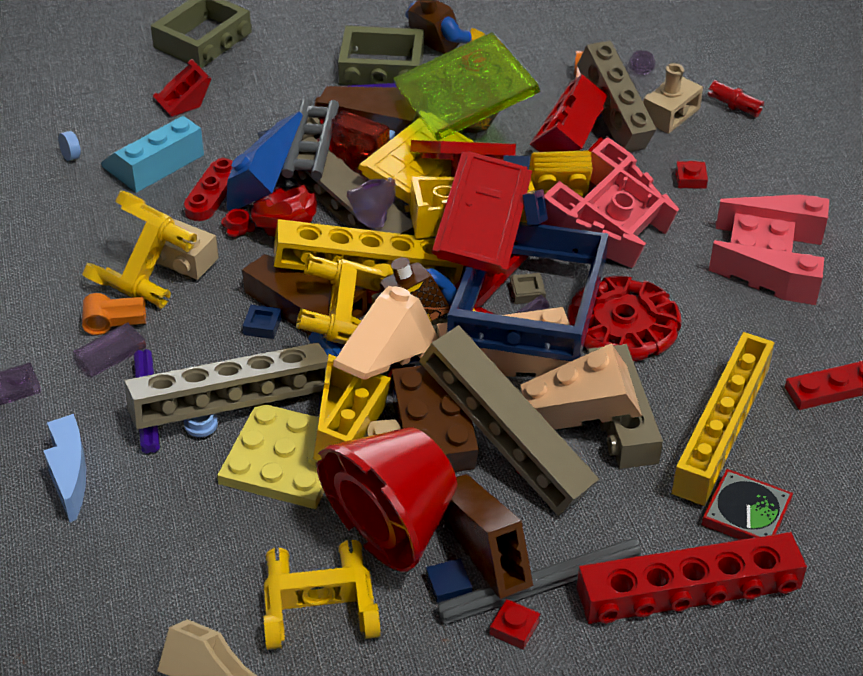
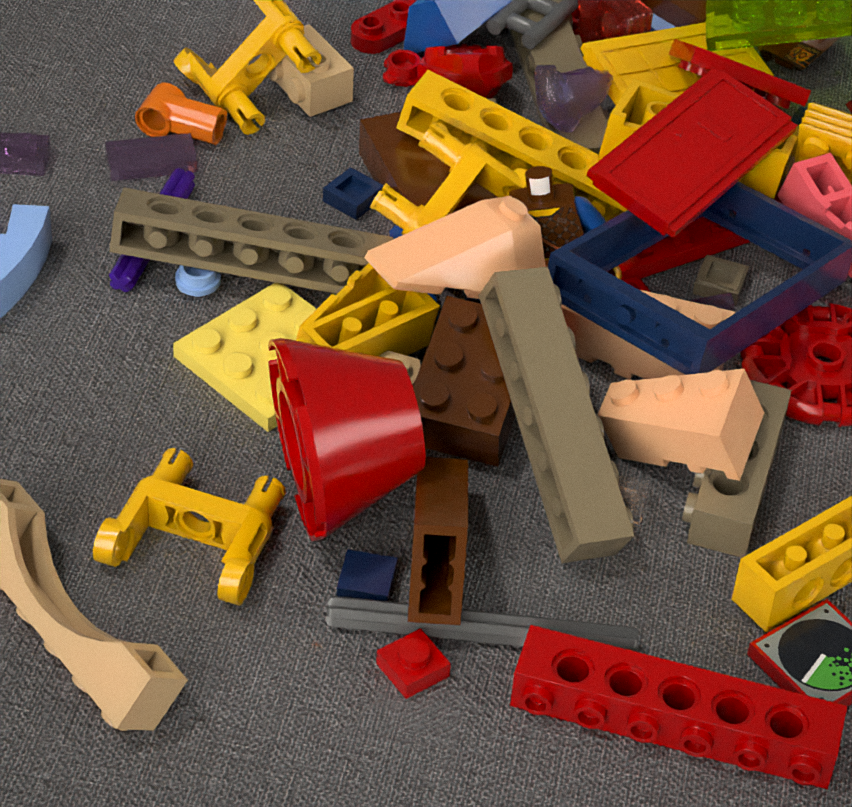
camera: 25 degrees right, 0 degrees up
(535, 207) = (773, 172): dark blue tile -> none

